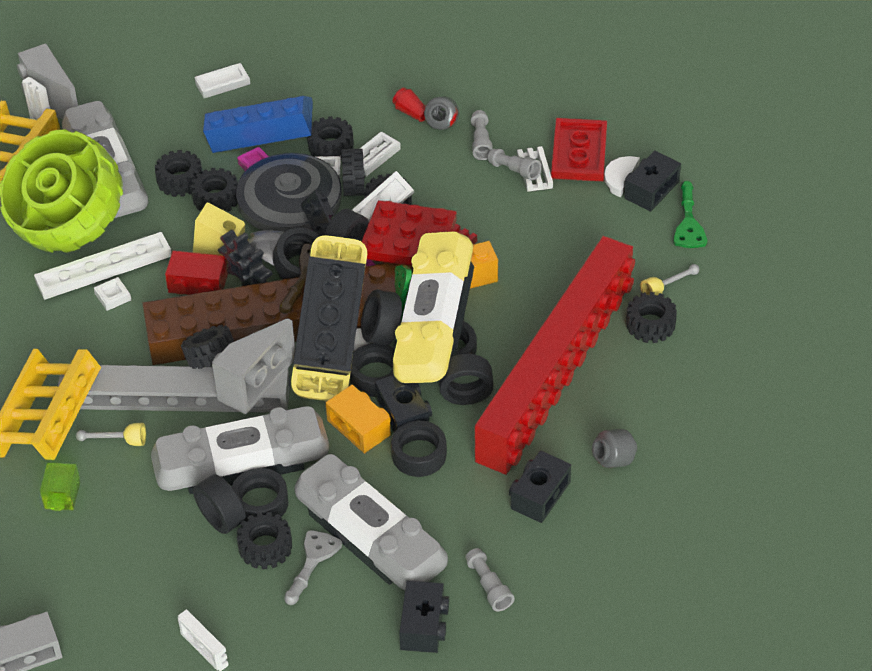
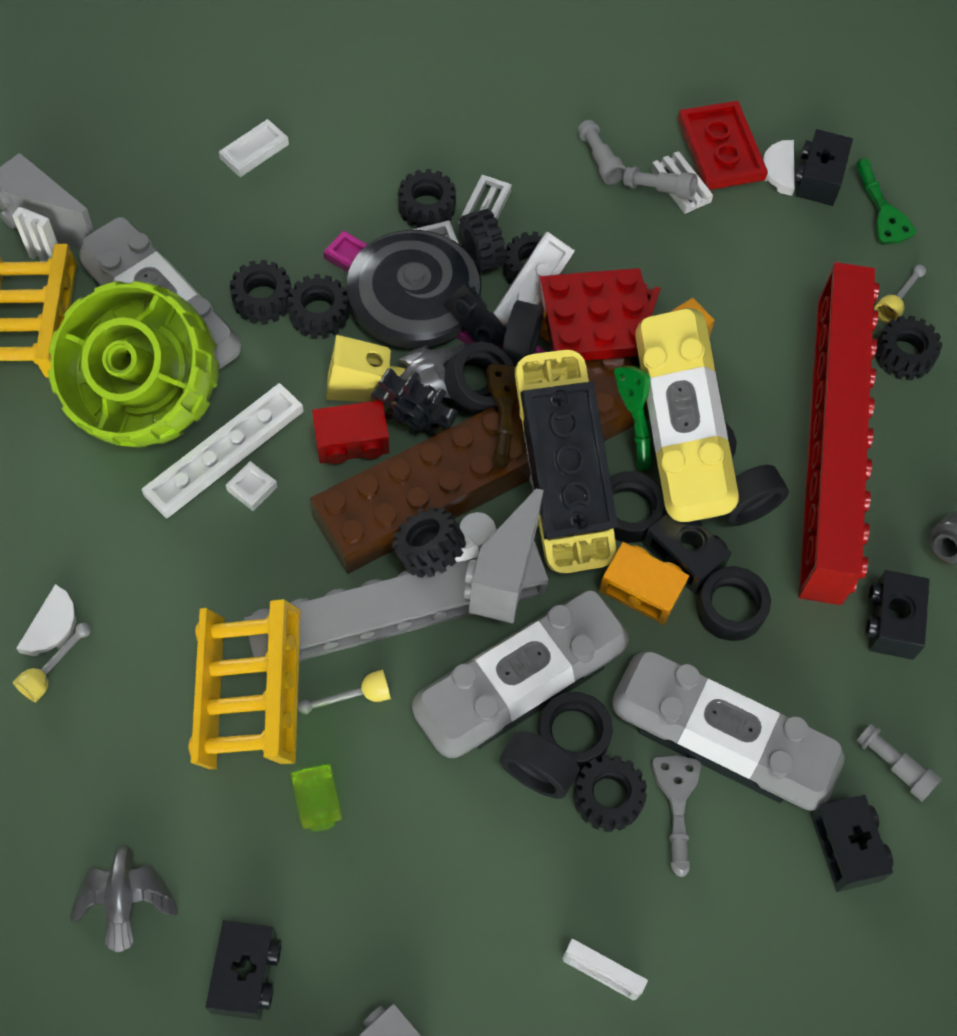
camera: 25 degrees left, 15 degrees up
(259, 124) = (335, 200): blue slope -> none
(381, 317) = (641, 439): black tyre -> none
(409, 103) = (501, 130): red cone -> none
(448, 117) = (551, 143): dark grey head -> none

